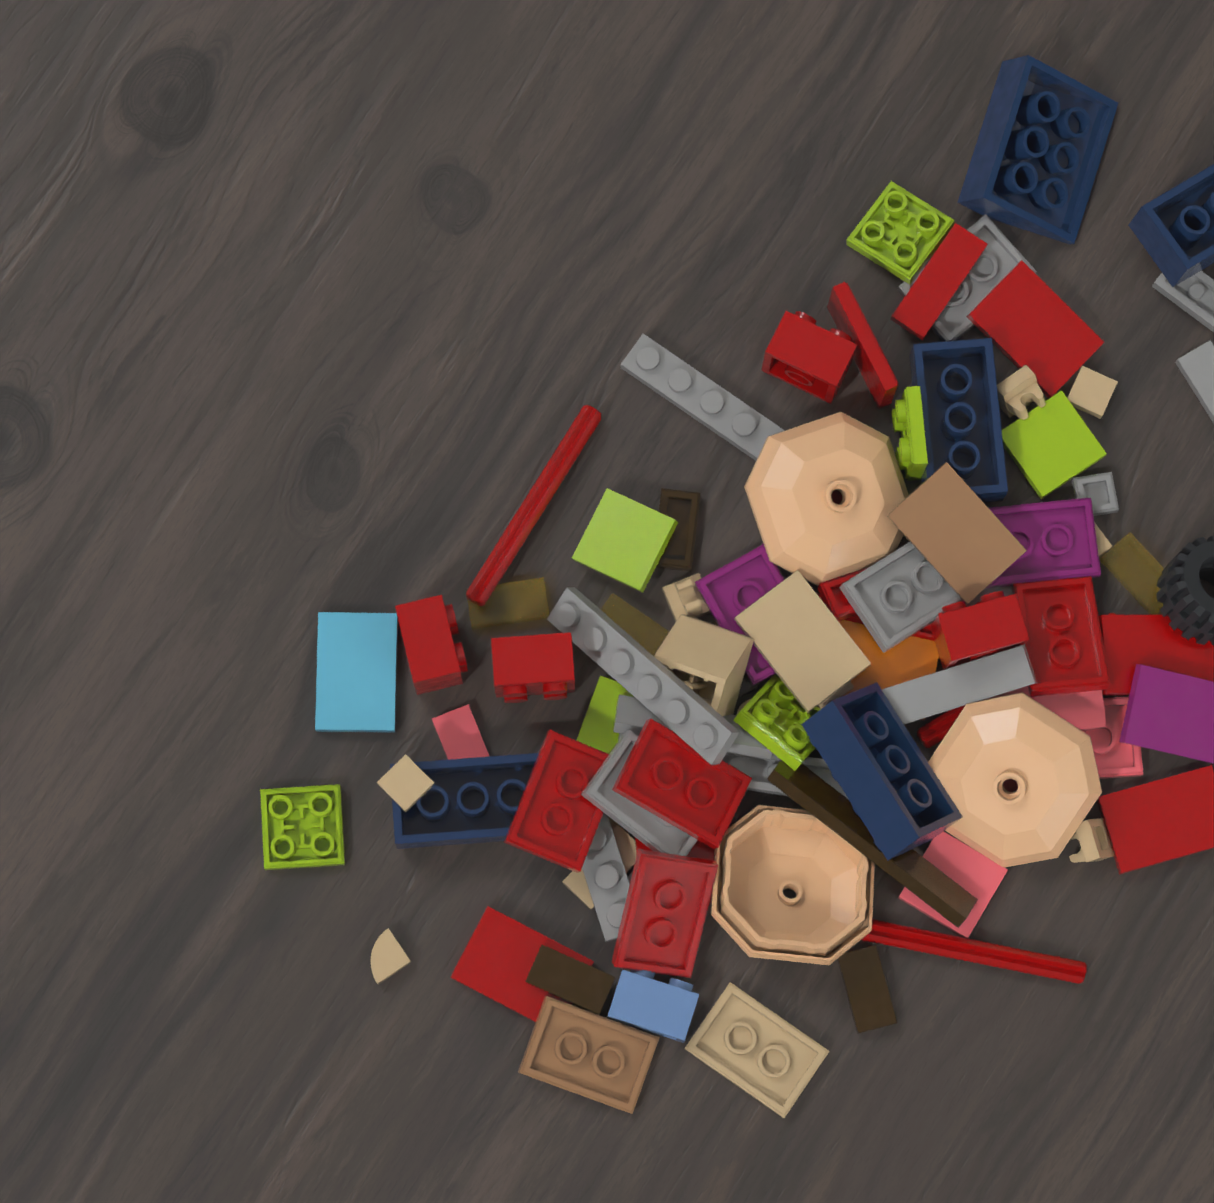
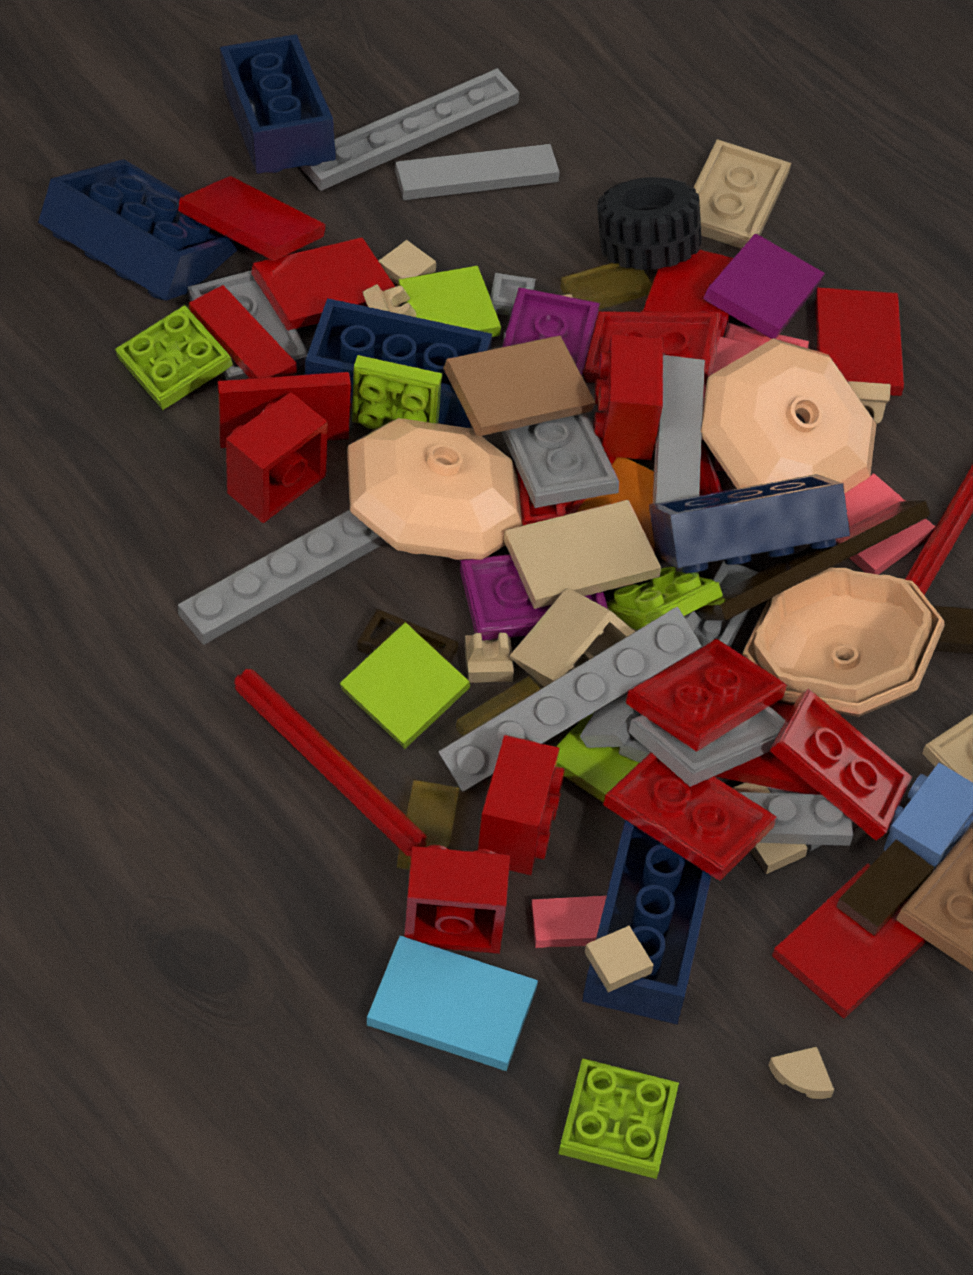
camera: 75 degrees left, 25 degrees down
(1081, 239) = (251, 218): none -> red tile

